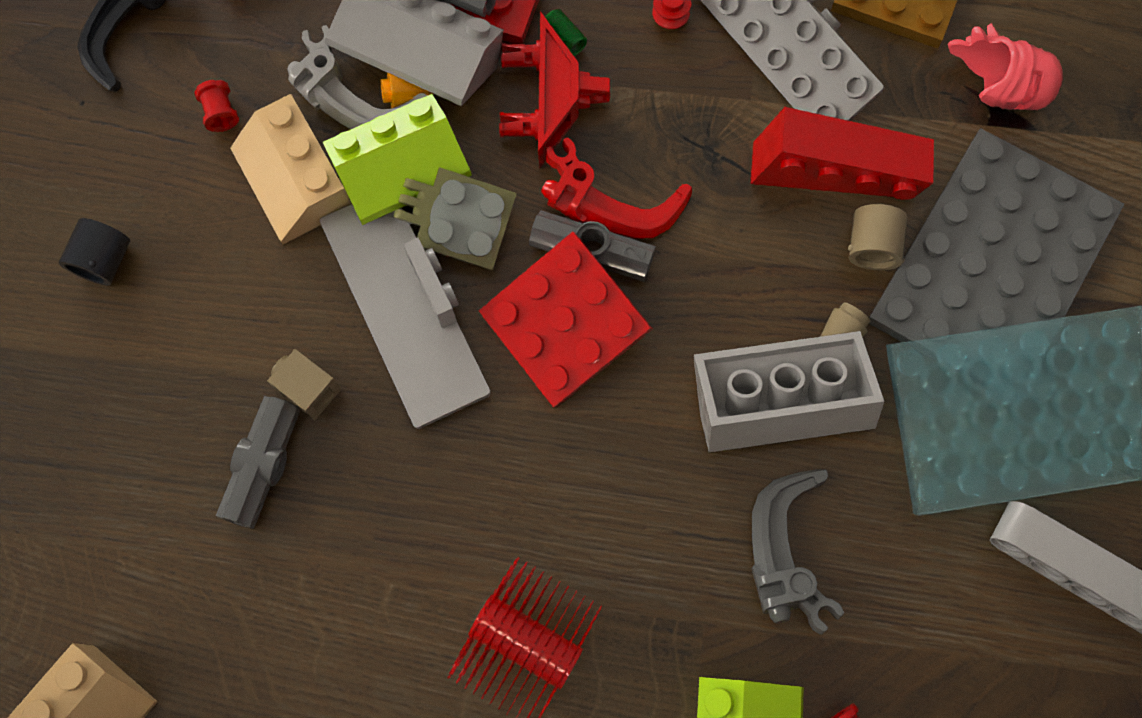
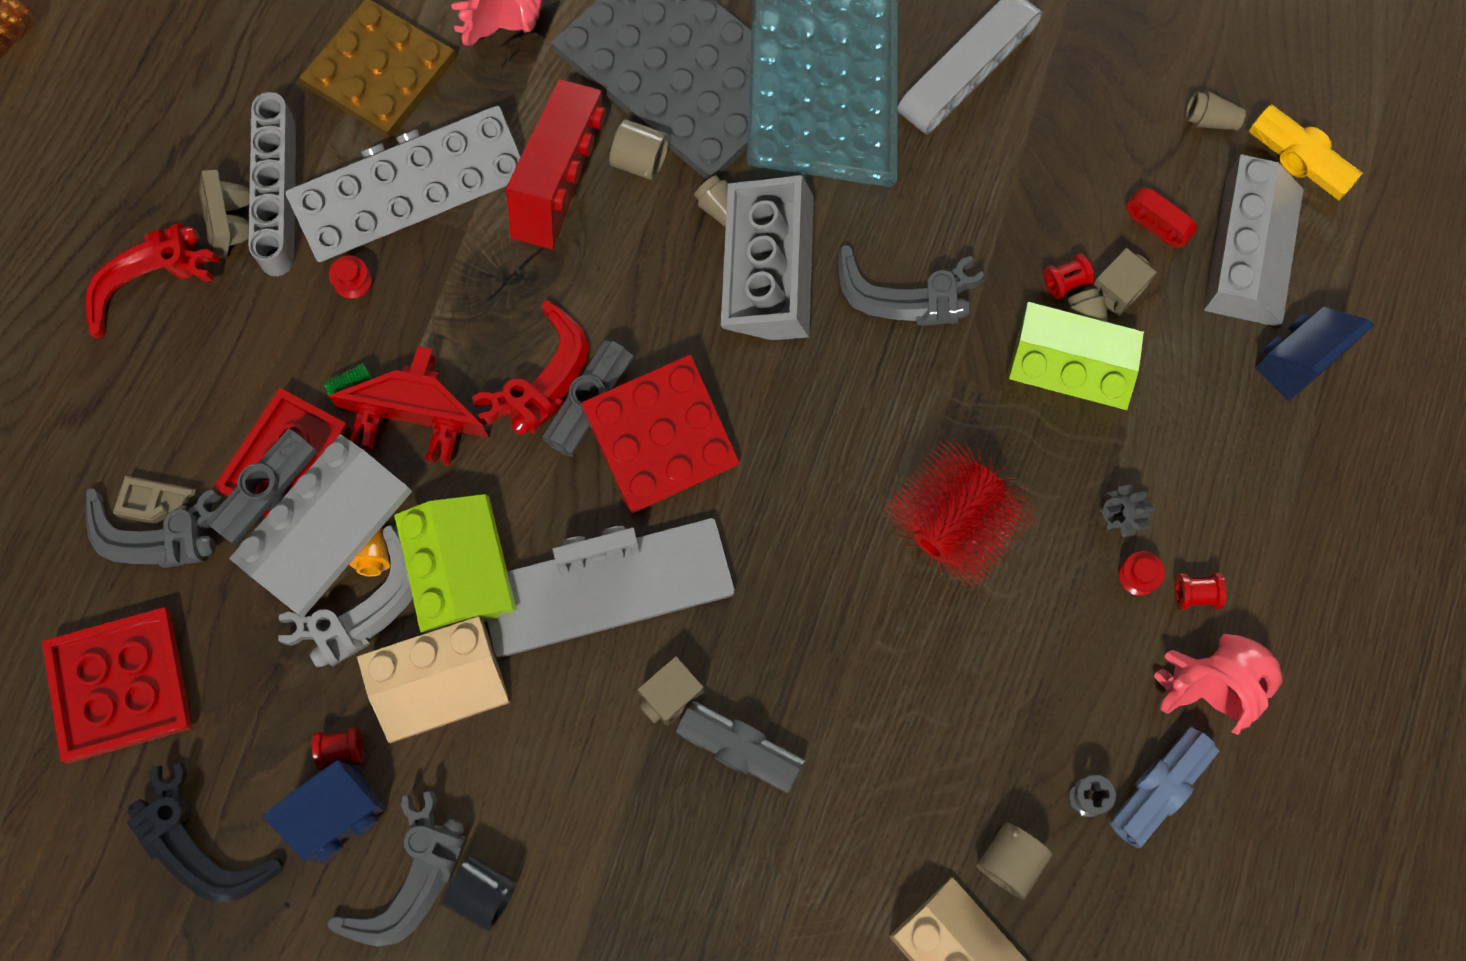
camera: 80 degrees left, 0 degrees up
(130, 207) = (435, 859): none -> dark grey piece
(151, 107) = (326, 812): none -> dark blue slope
(459, 216) = (531, 514): piece -> none

